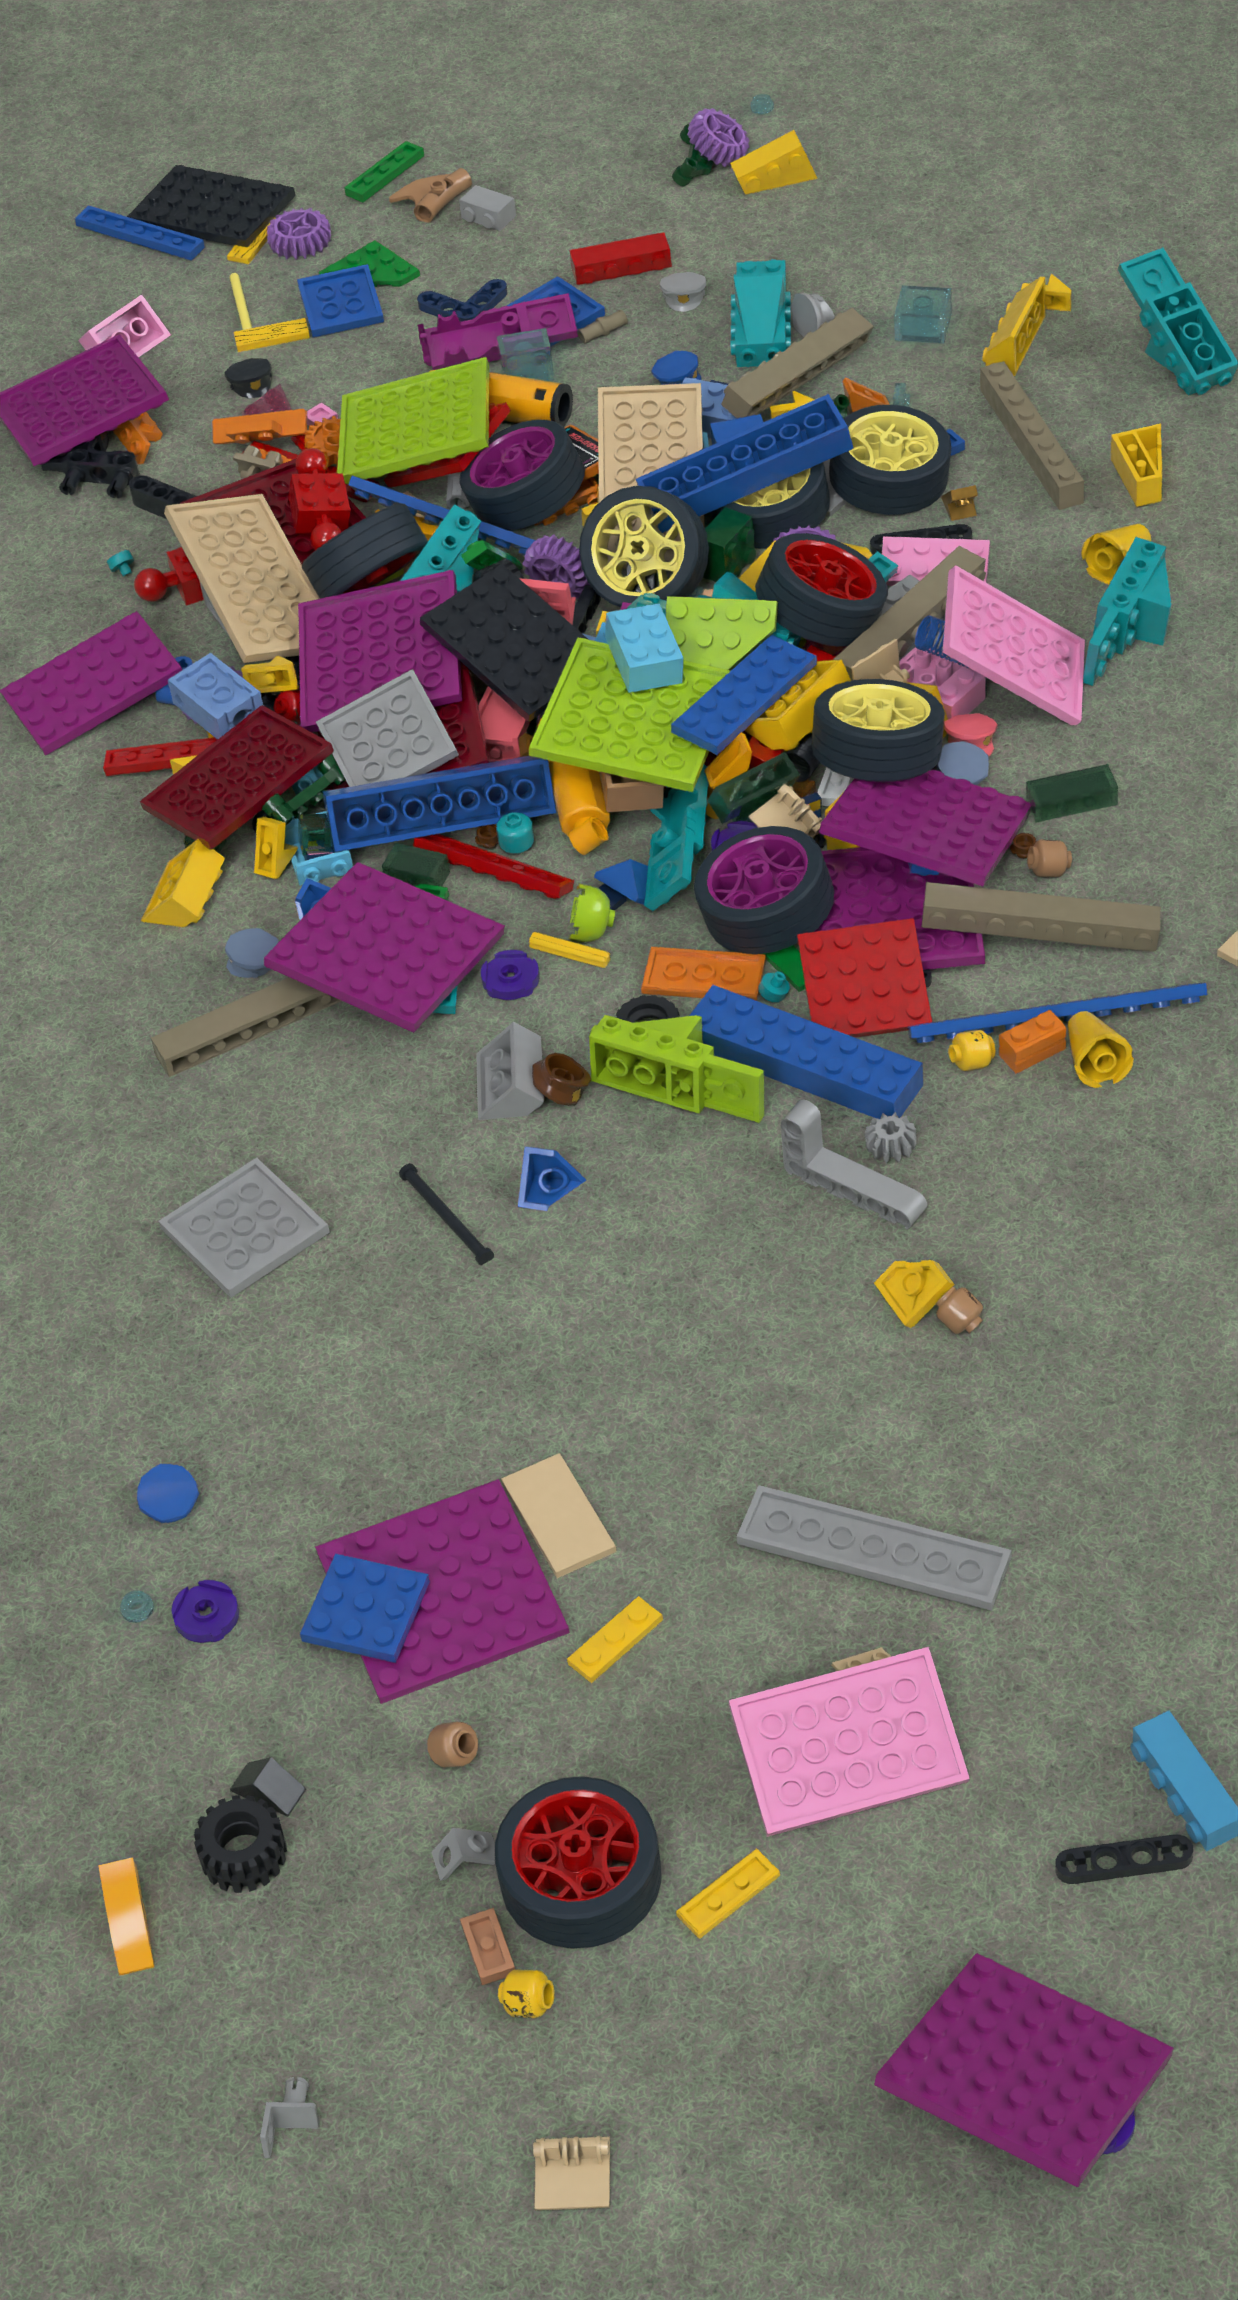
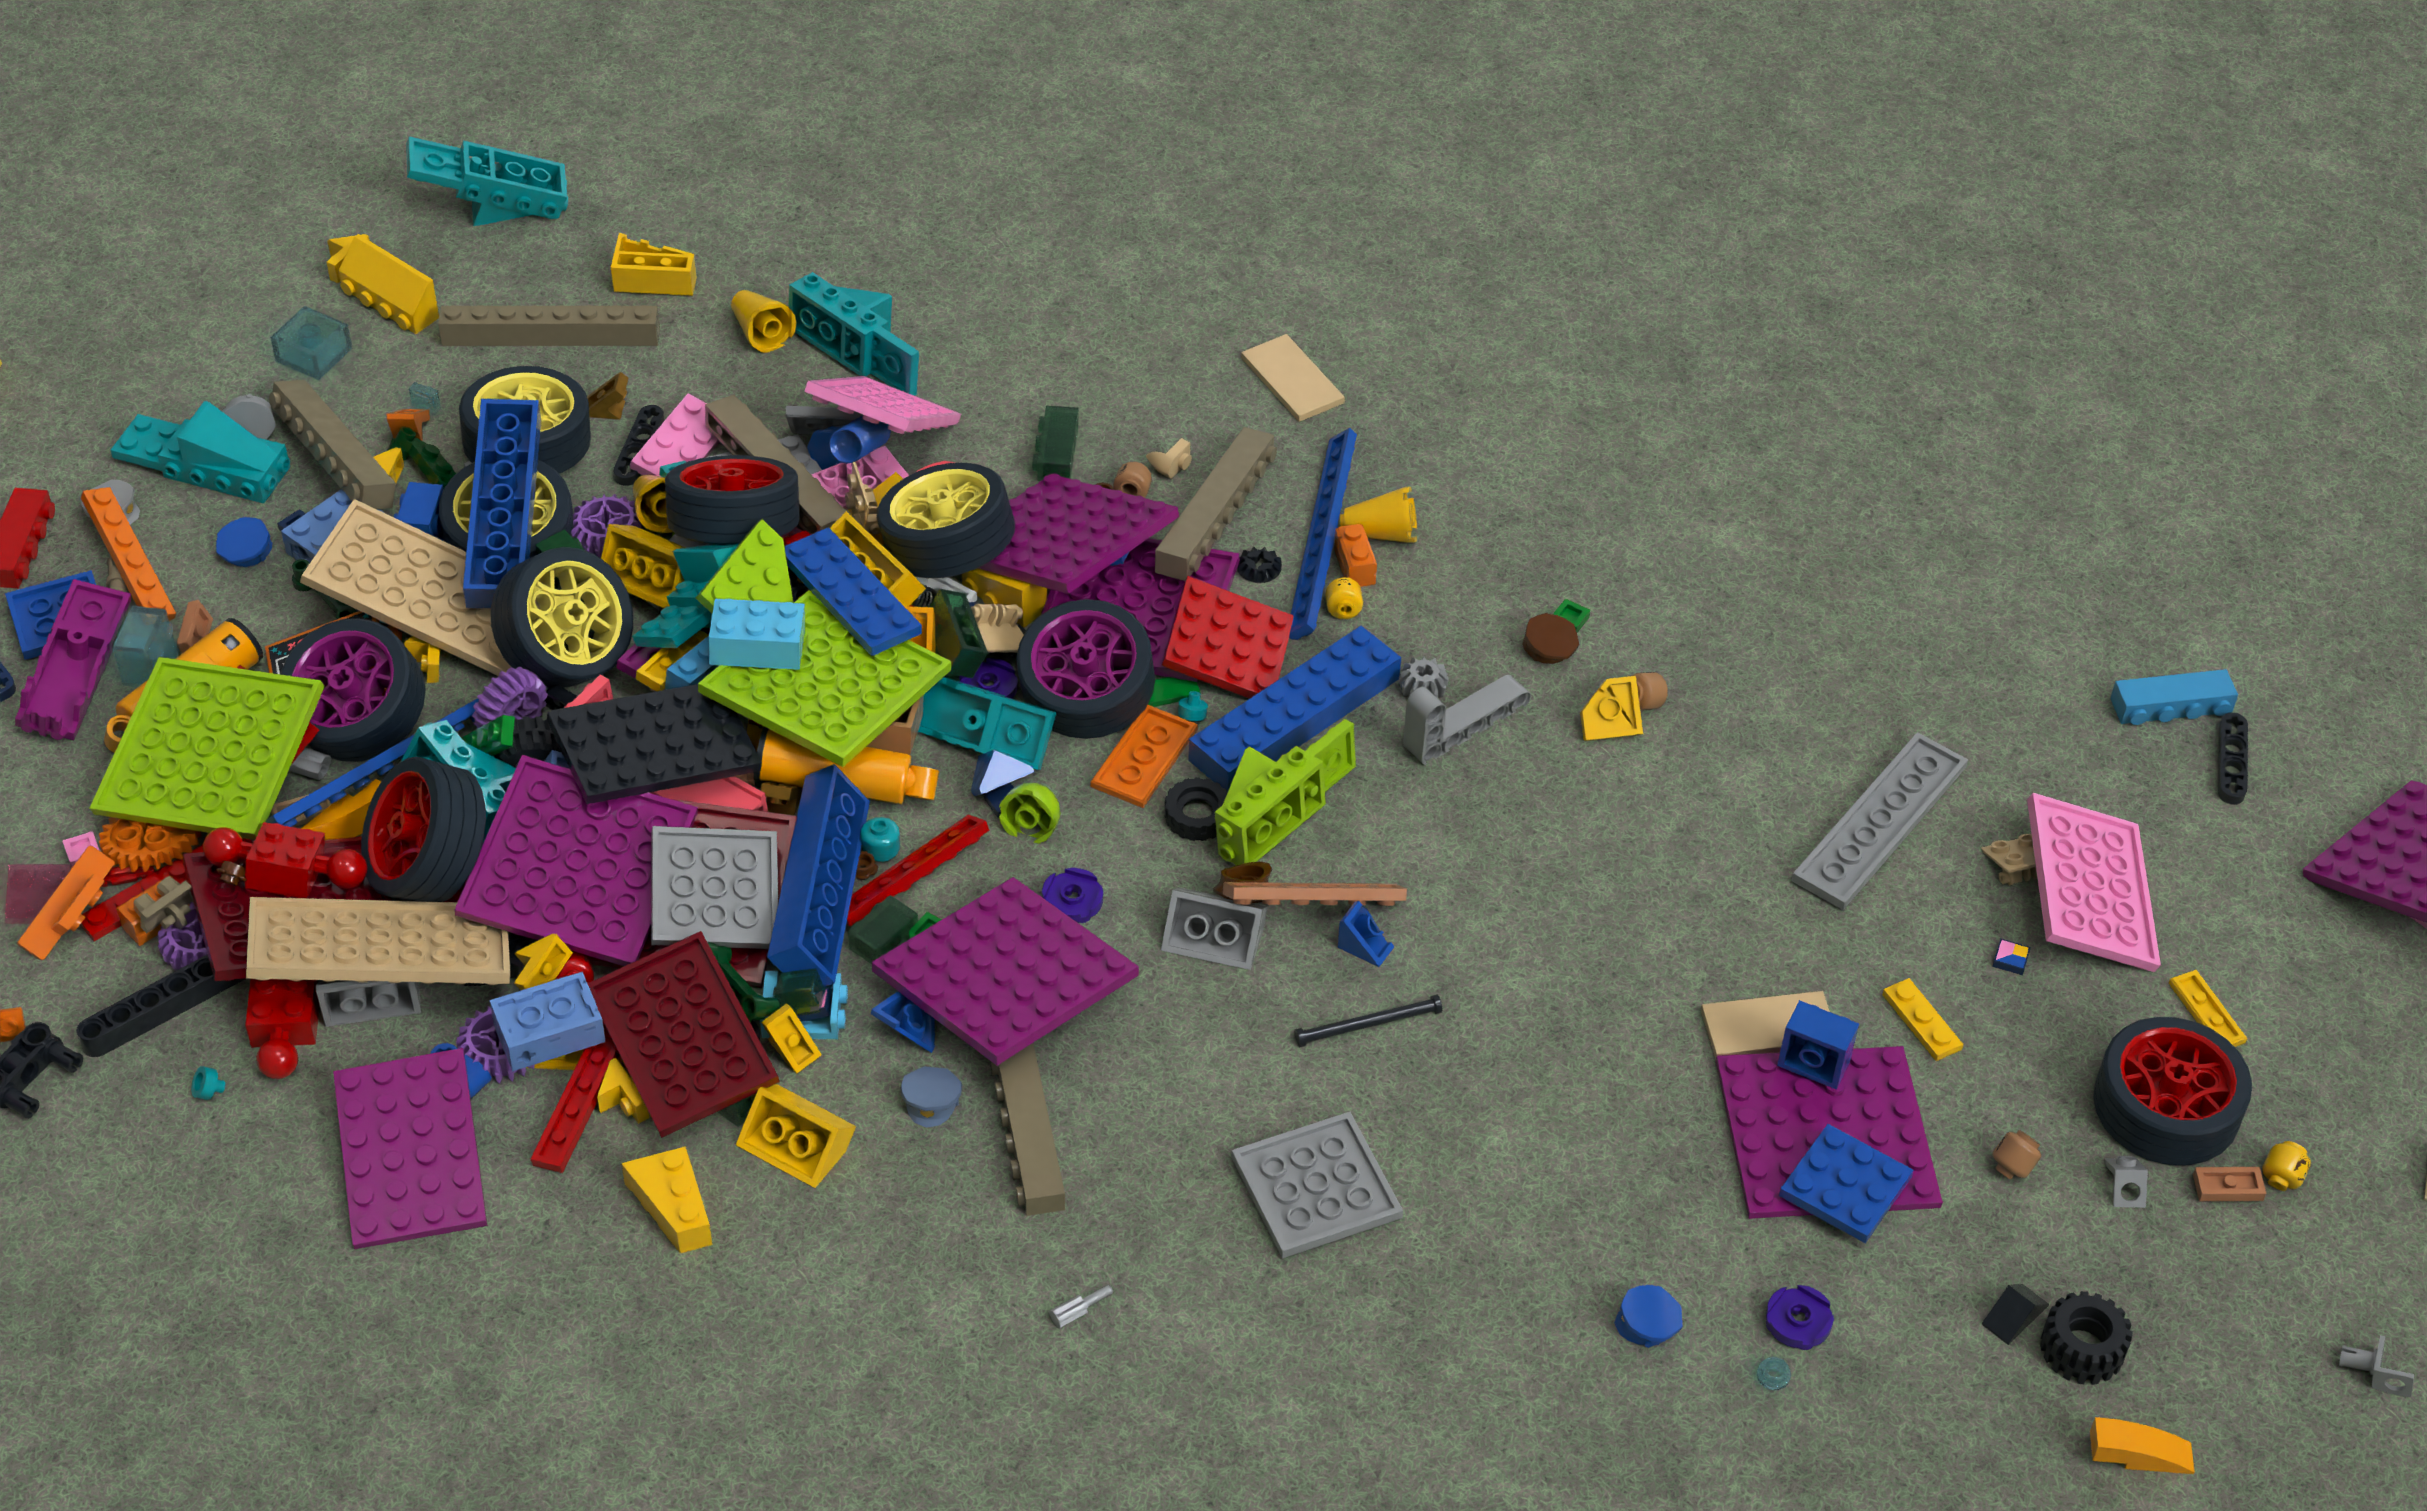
camera: 80 degrees left, 0 degrees up
(67, 1111) = (1077, 1307): none -> light grey axle
(92, 839) = (671, 1196): none -> yellow wedge
(285, 477) = (231, 873): none -> reddish brown plate
(508, 1535) = (1818, 1044): none -> blue brick
(562, 1123) = (1301, 893): none -> nougat plate
(569, 949) = (1058, 844): yellow axle -> none
(578, 378) = (195, 625): none -> nougat plate
(623, 315) = (126, 550): none -> orange plate
(726, 1692) = (2011, 956): none -> tile
(983, 988) = (1266, 571): none -> black gear
(995, 1216) = (1550, 638): none -> reddish brown hat
(1041, 1228) = (1574, 613): none -> green plate
(1097, 877) = (1173, 461): none -> tan plate

